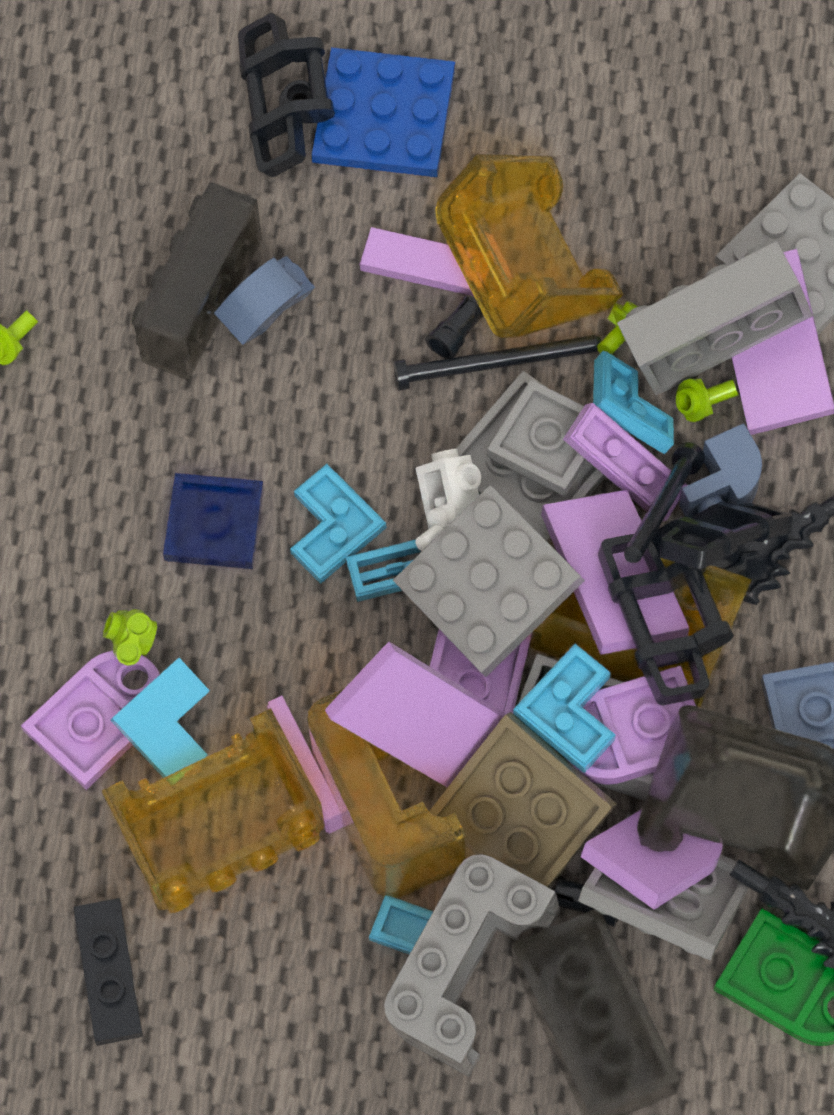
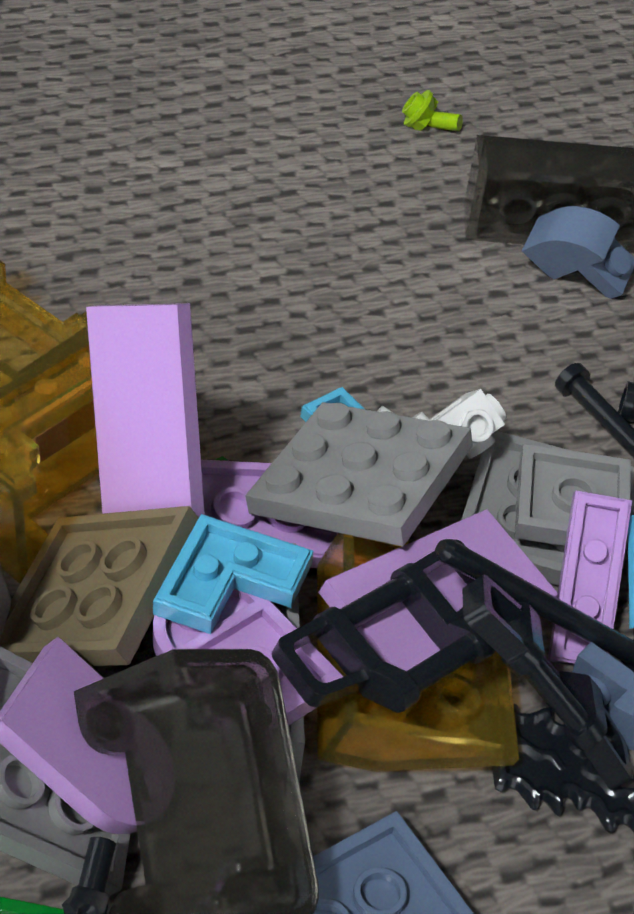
camera: 60 degrees right, 20 degrees down
(76, 720) = (82, 256): lavender tile -> none
(131, 634) = (170, 239): lime plate -> none
(152, 719) = (94, 279): medium azure tile -> none
(213, 521) = (325, 281): clear blue plate -> none
(344, 526) = (379, 382): medium azure tile -> none

